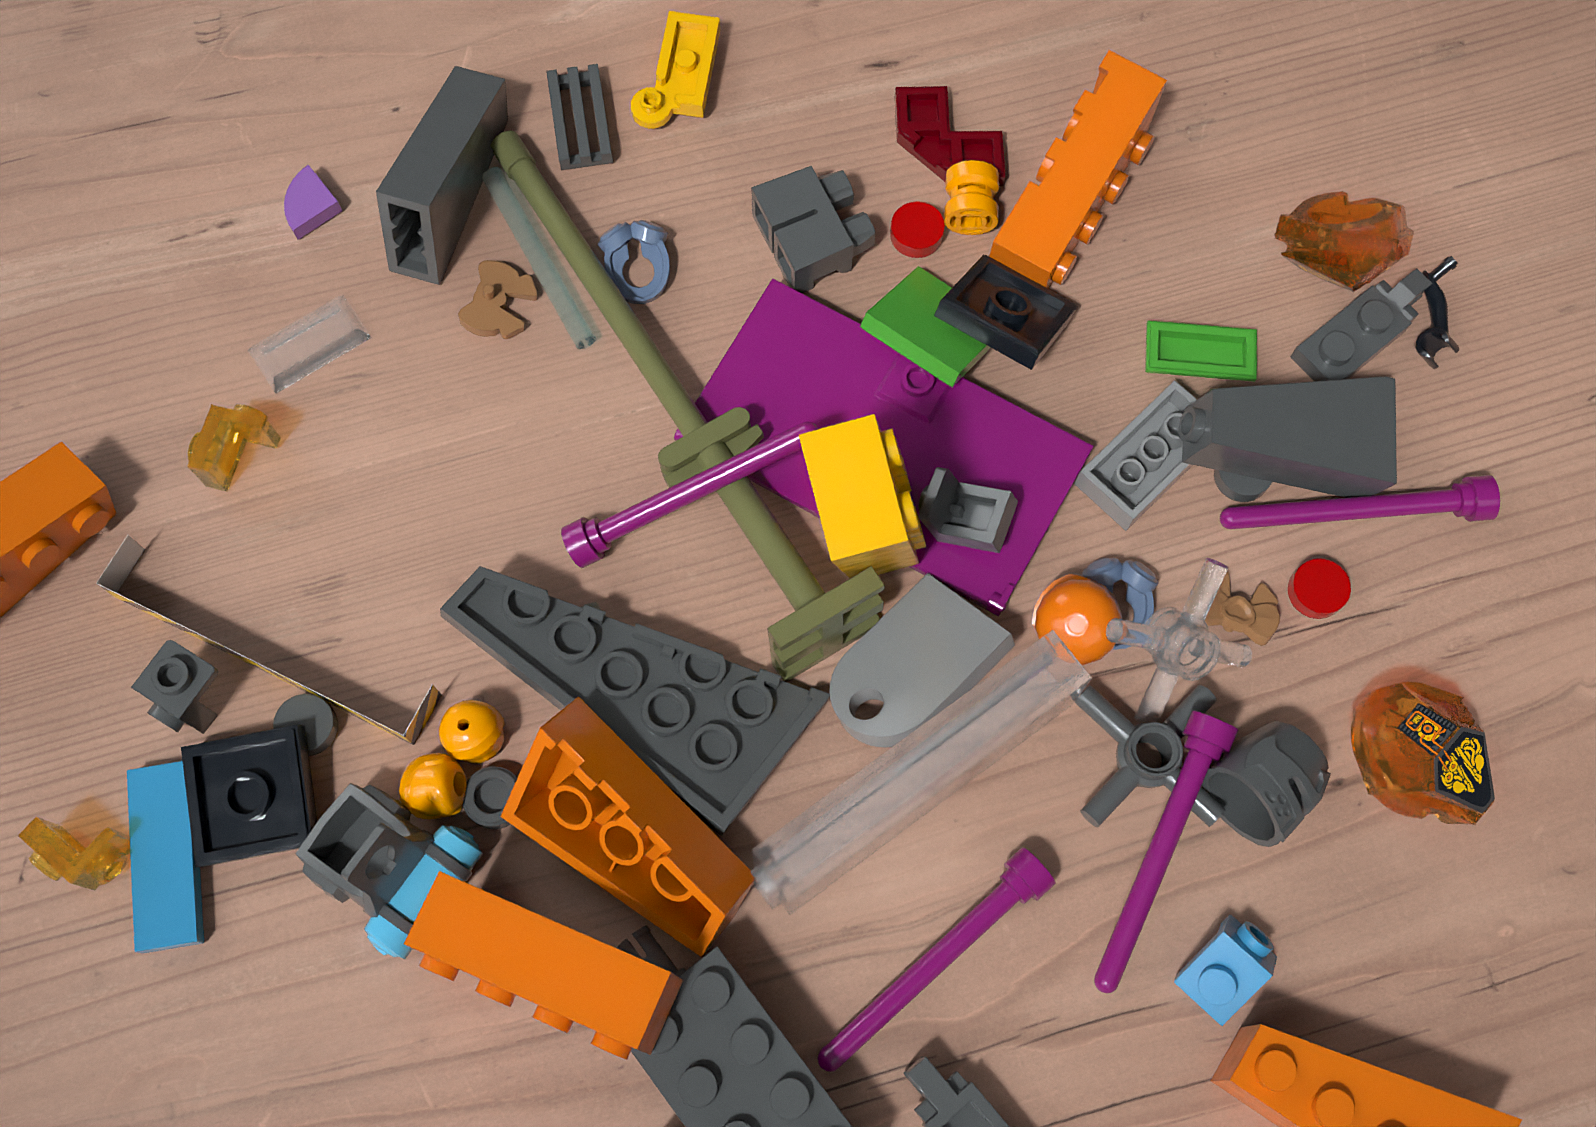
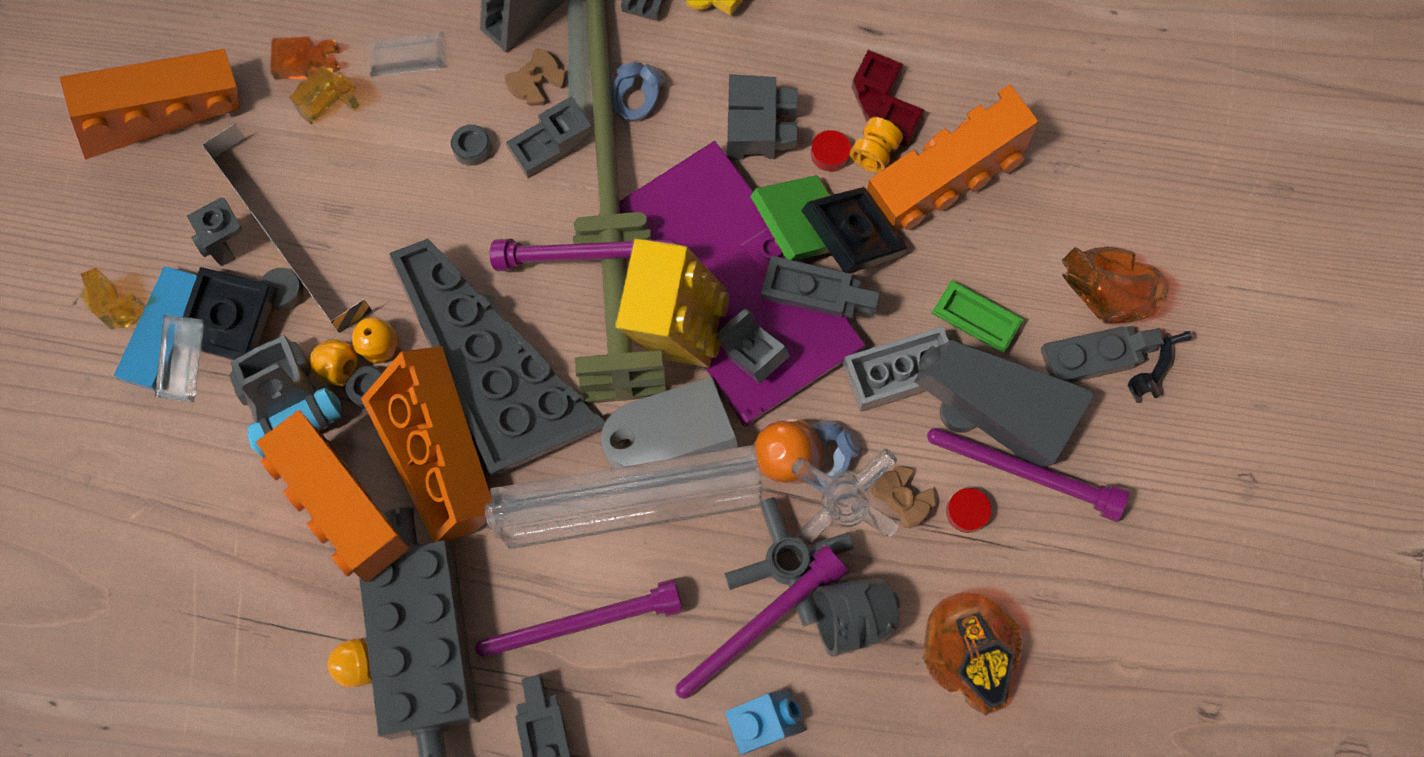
camera: 30 degrees right, 0 degrees up
(164, 411) = (298, 56): none -> clear orange plate
(217, 883) = (179, 358): none -> clear tile
(459, 422) = (471, 145): none -> dark grey tile
(560, 368) = (550, 139): none -> dark grey slope
(1004, 404) = (817, 289): none -> dark grey hinge

